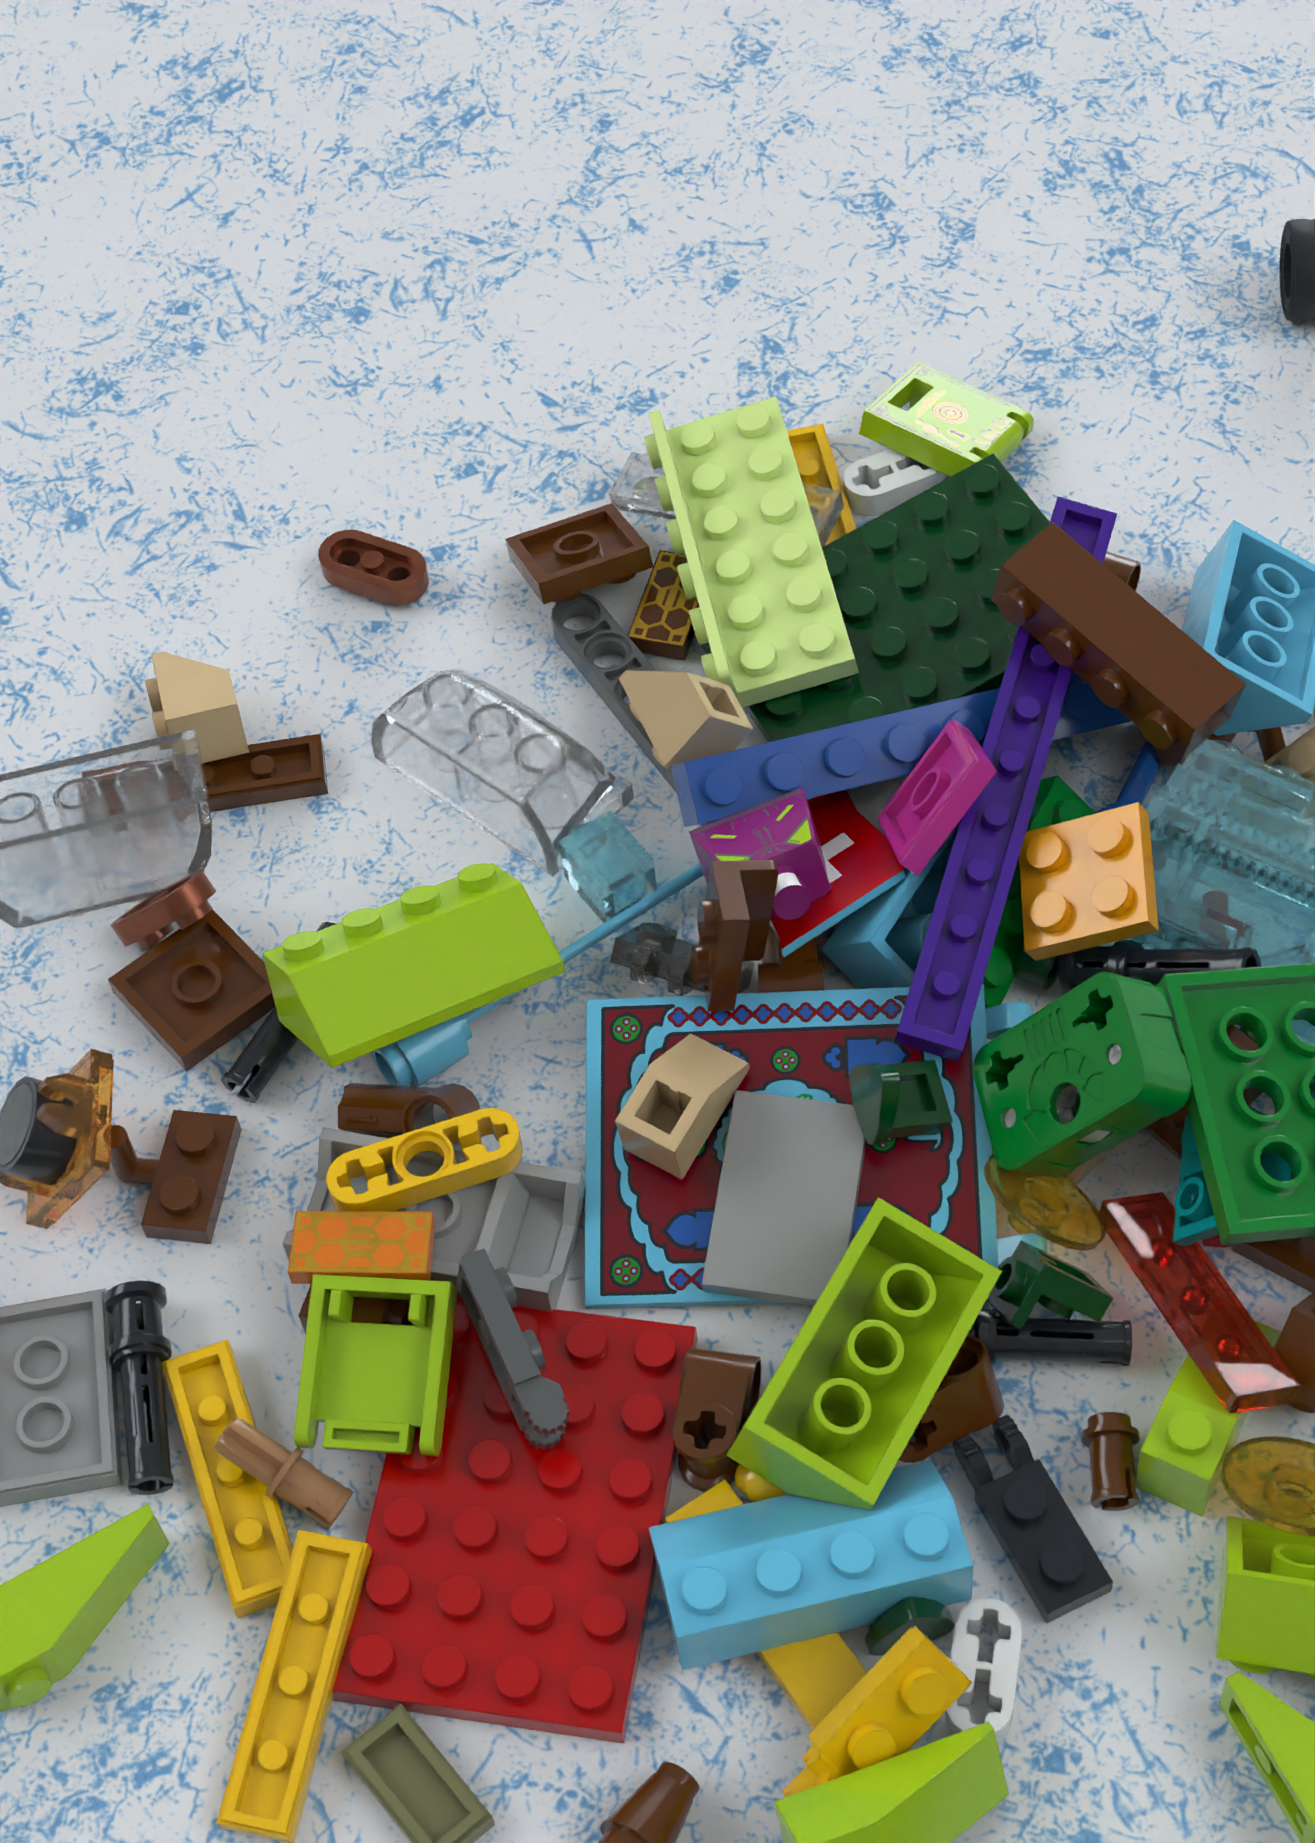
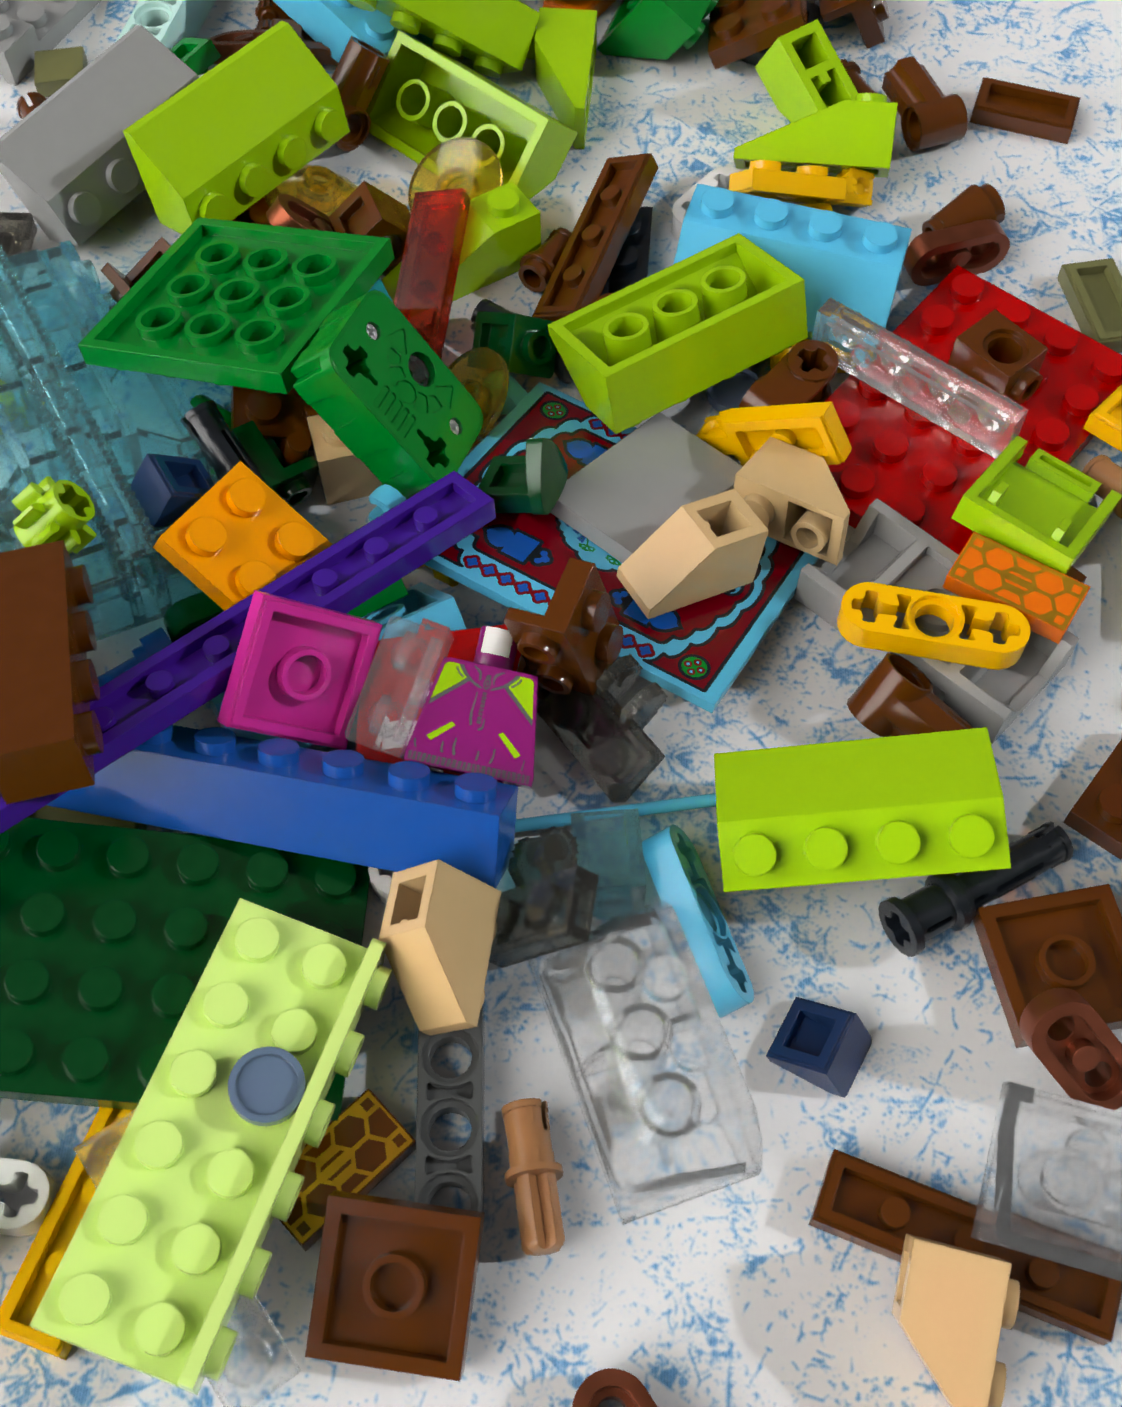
camera: 155 degrees left, 5 degrees up
(369, 847) = (821, 1045): none -> dark blue slope
(512, 1353) = (930, 453): dark grey hinge -> none
(514, 1552) = (1000, 356): none -> reddish brown brick
(531, 661) = (533, 1176): none -> medium nougat axle
(535, 863) = (685, 886): none -> medium azure beam
(601, 1461) = (919, 379): none -> clear plate
(614, 1764) = (972, 246): none -> copper plate
(631, 1251) = (796, 499): none -> tan slope
(636, 788) = (550, 901): none -> clear smoke hinge
(698, 1311) = (803, 425): none -> yellow hinge
(733, 565) = (266, 1086): none -> sand blue piece
(847, 835) = (398, 684): none -> clear bracket
(1064, 1493) = (597, 236): none -> reddish brown tile
(1193, 891) = (169, 486): none -> dark blue slope
(1227, 770) = (54, 514): none -> lime gear

